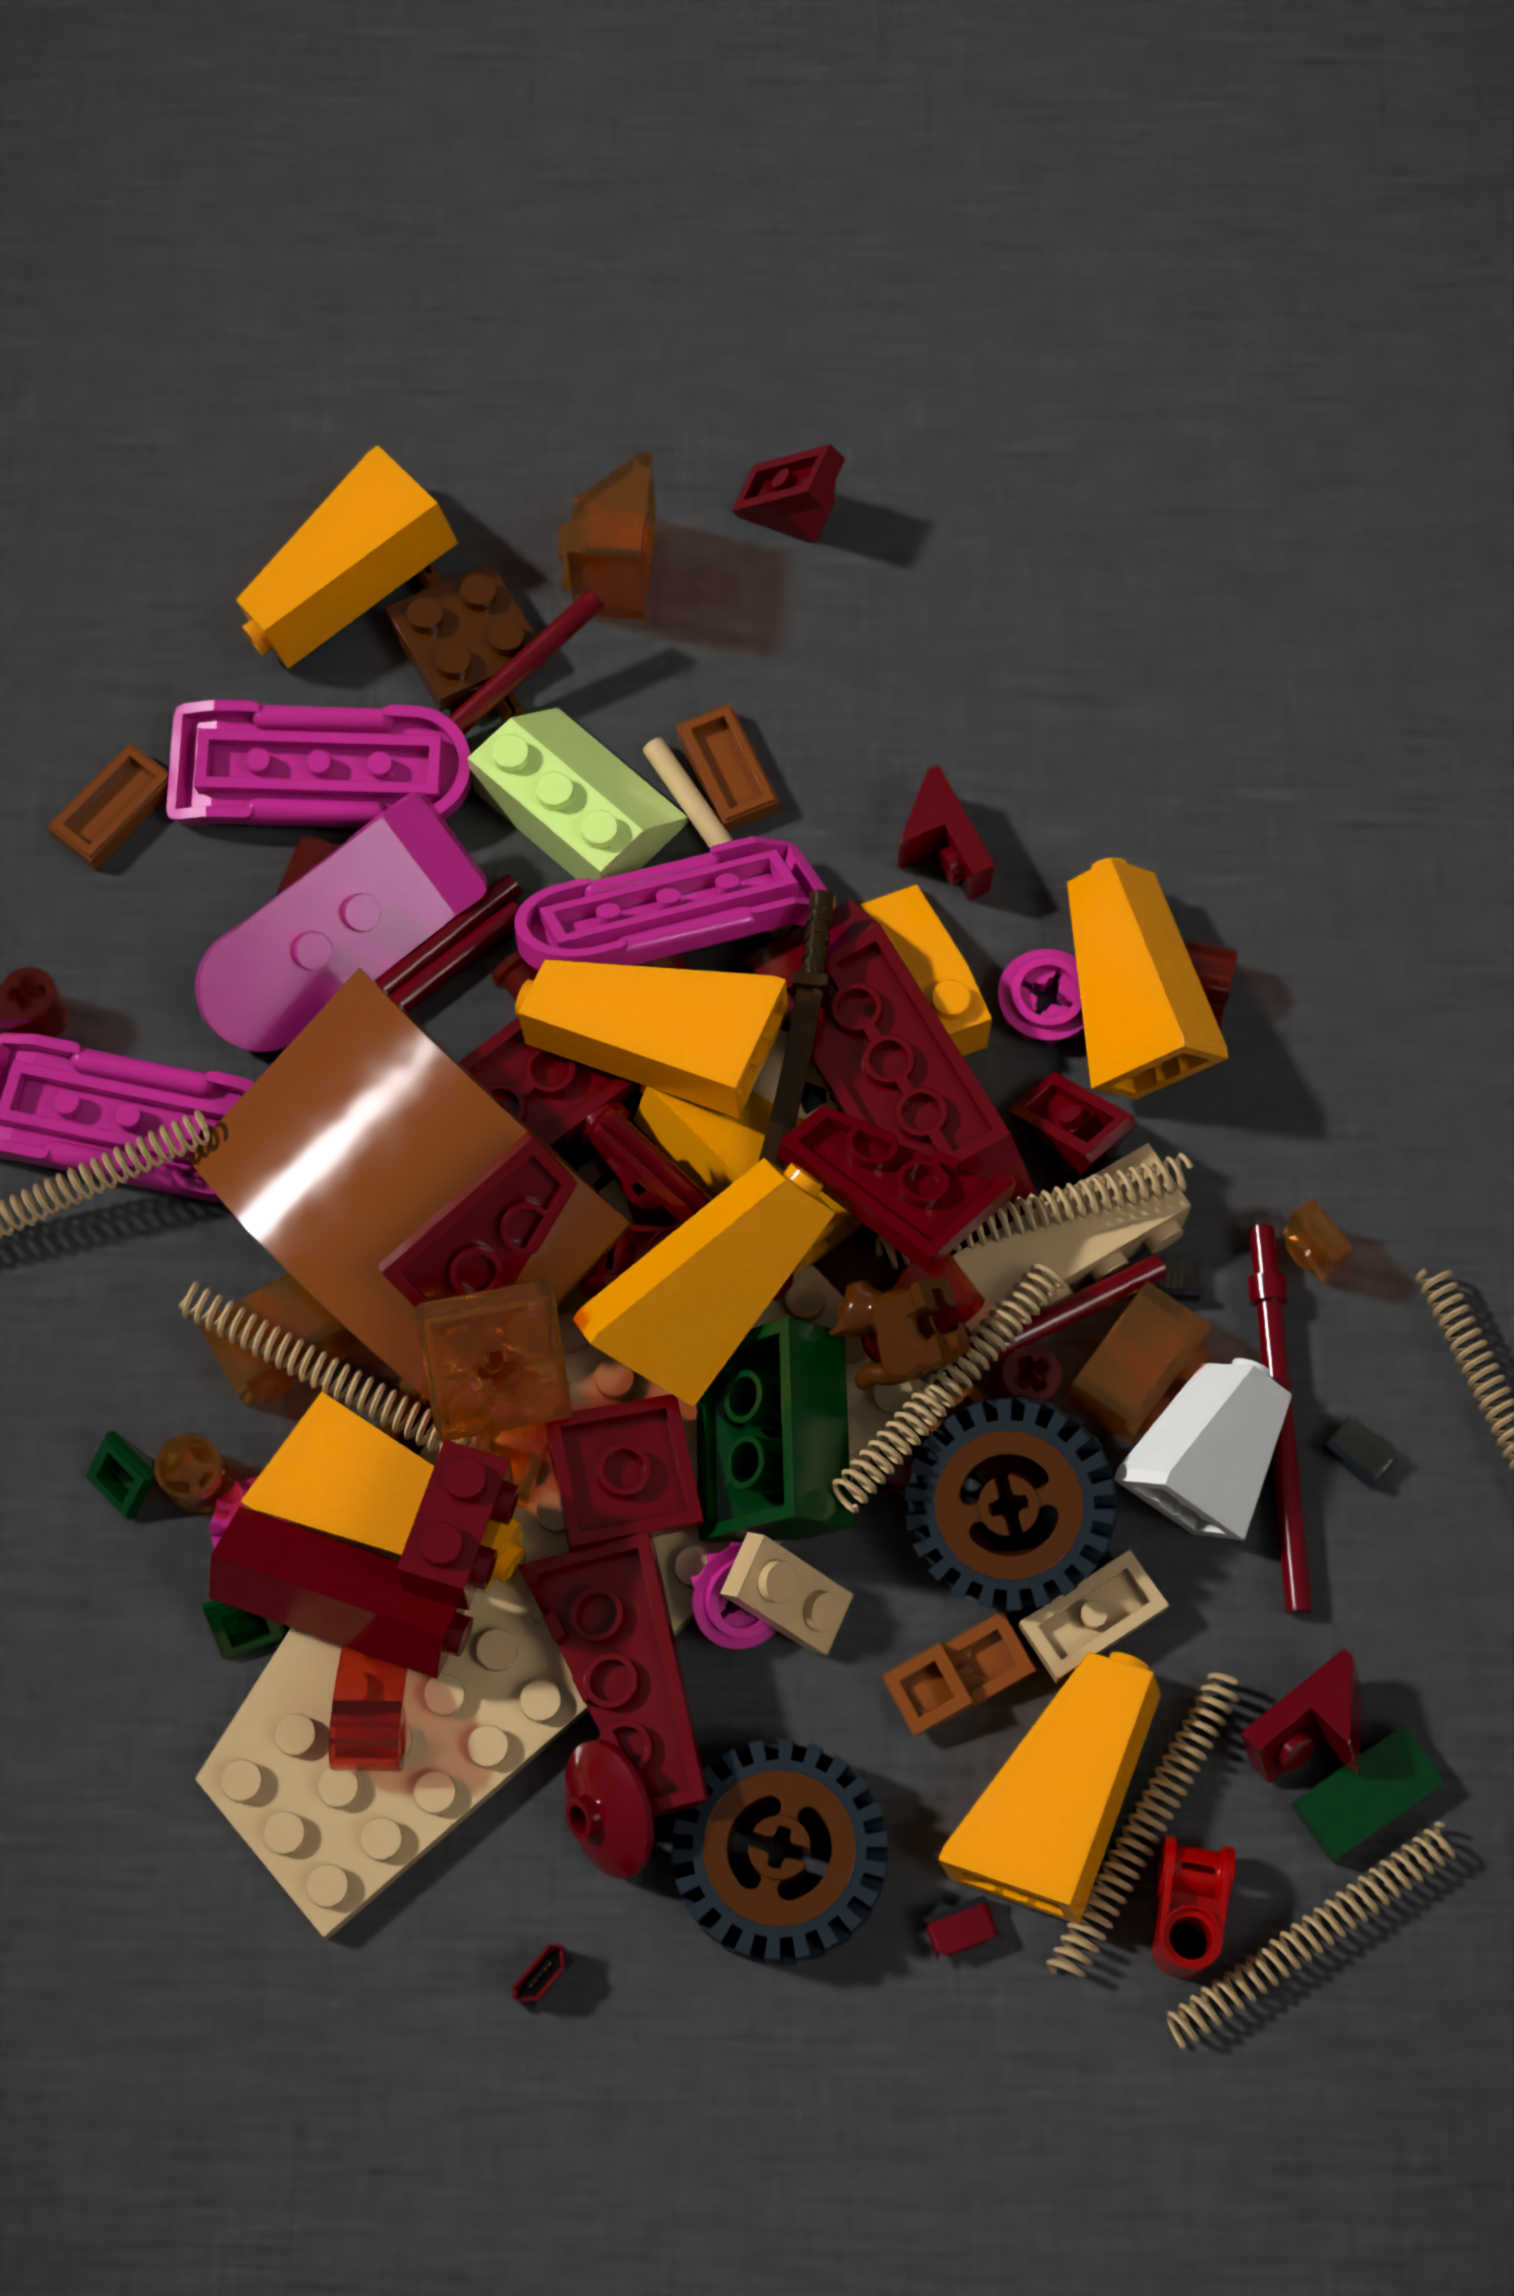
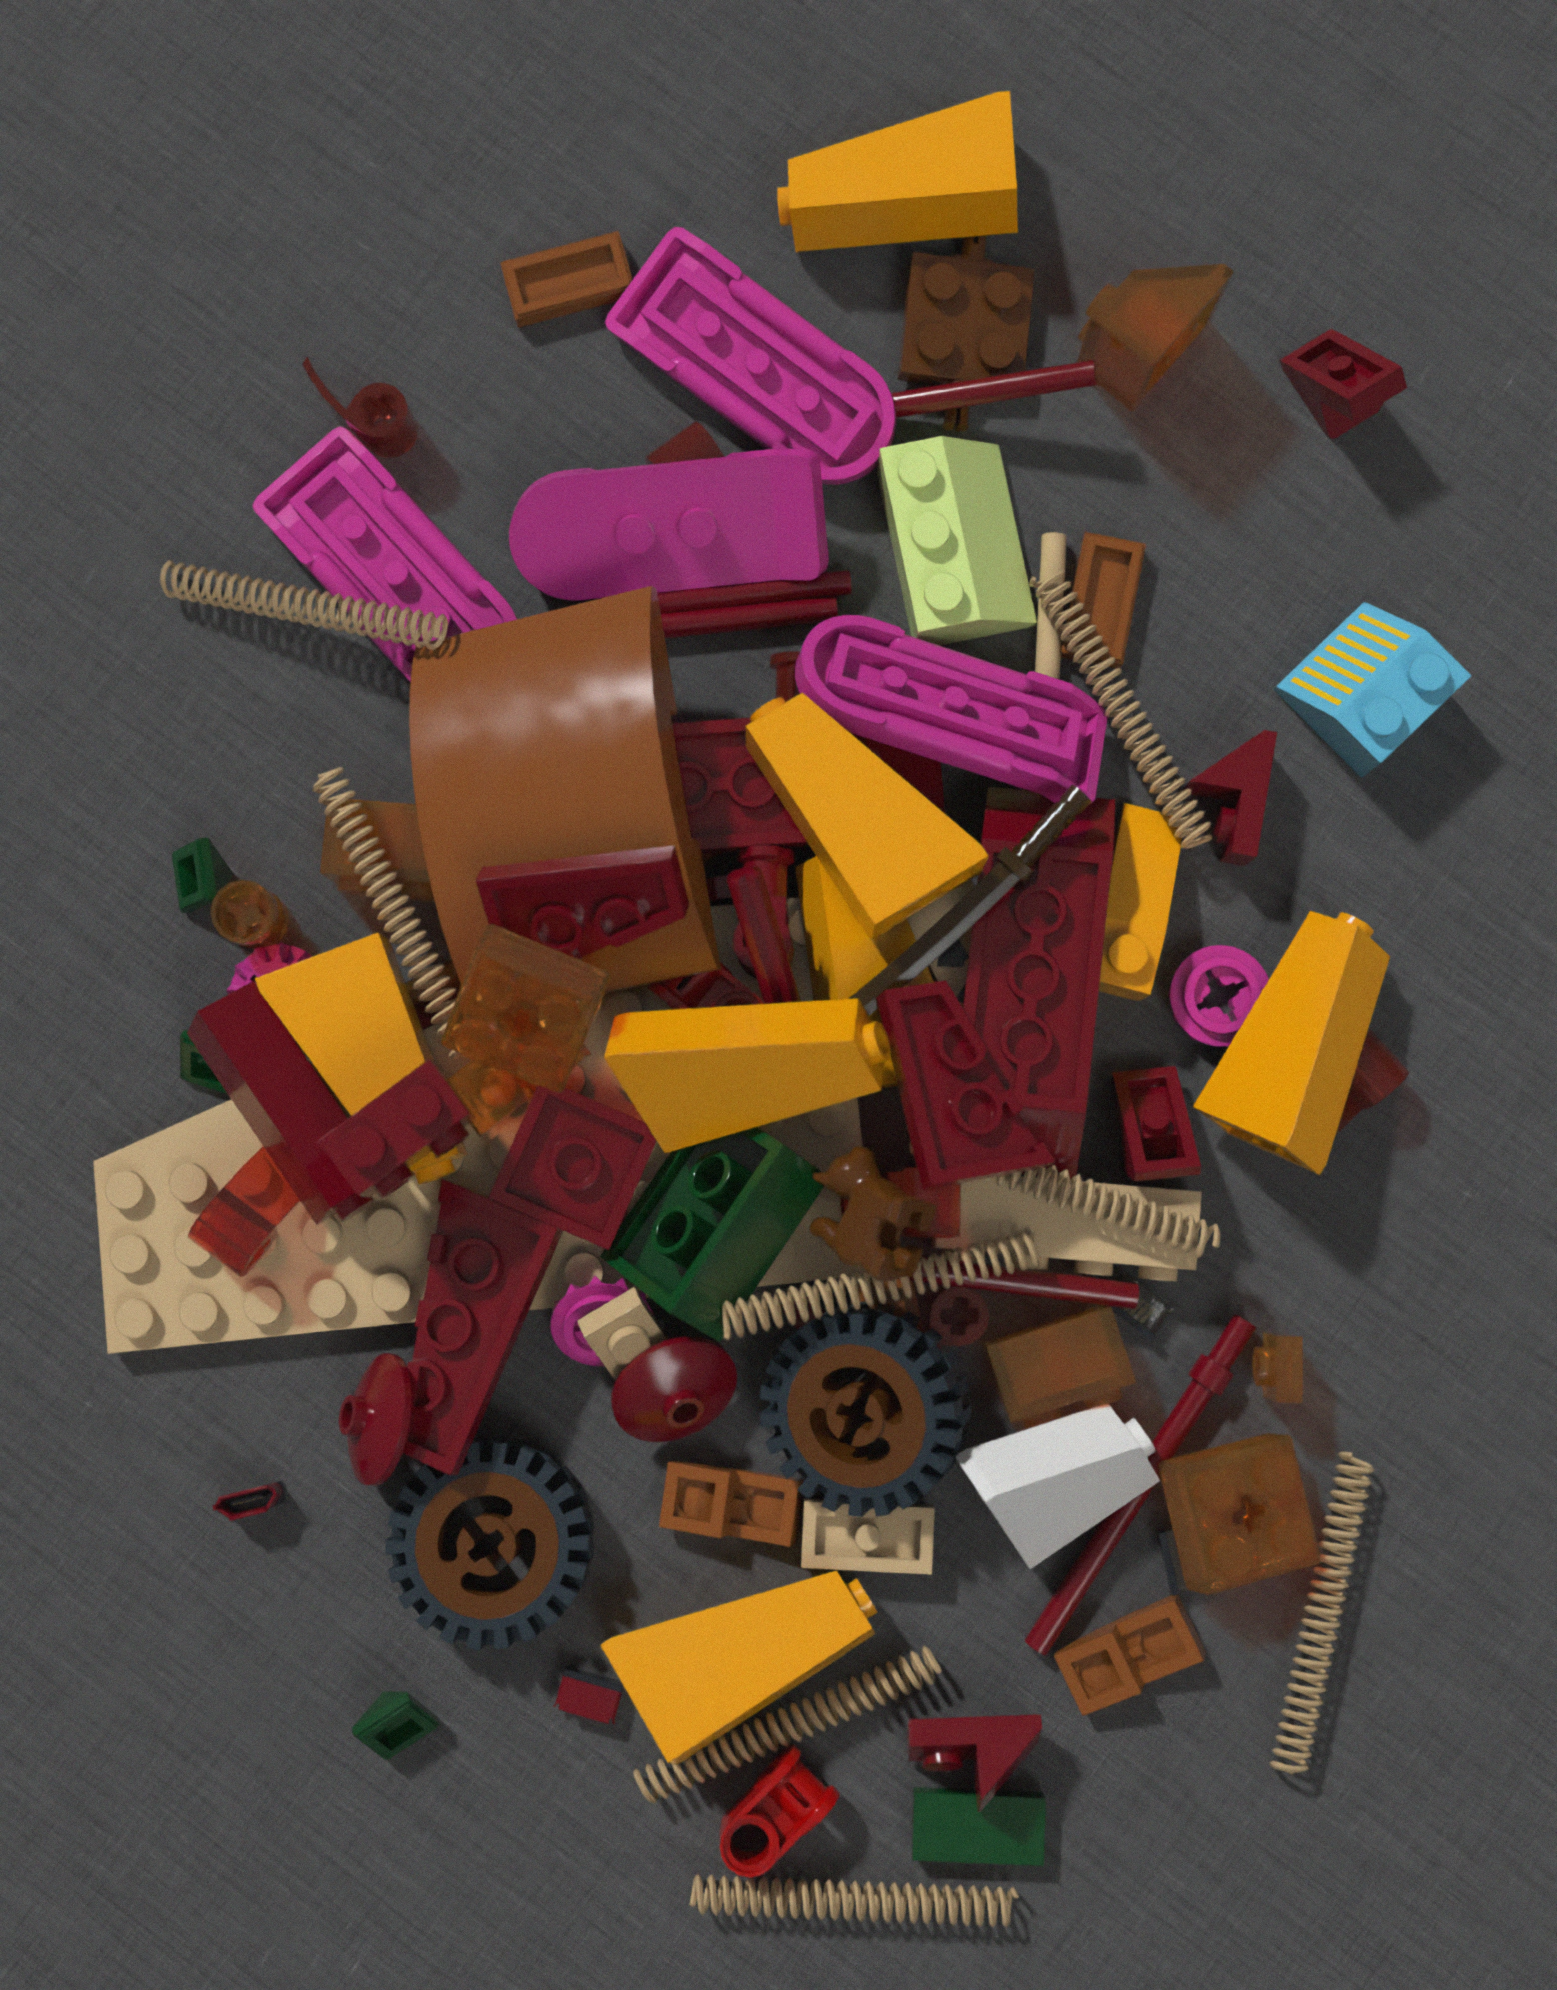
camera: 40 degrees right, 15 degrees up
(811, 2075) = (394, 1723): none -> dark green slope
(838, 852) = (1119, 714): none -> tan piece
(842, 1606) = (673, 1389): none -> dark red dish
(984, 691) = (1371, 685): none -> medium azure slope
(1370, 1412) = (1210, 1486): none -> clear orange brick
(1378, 1559) = (1129, 1653): none -> dark orange slope

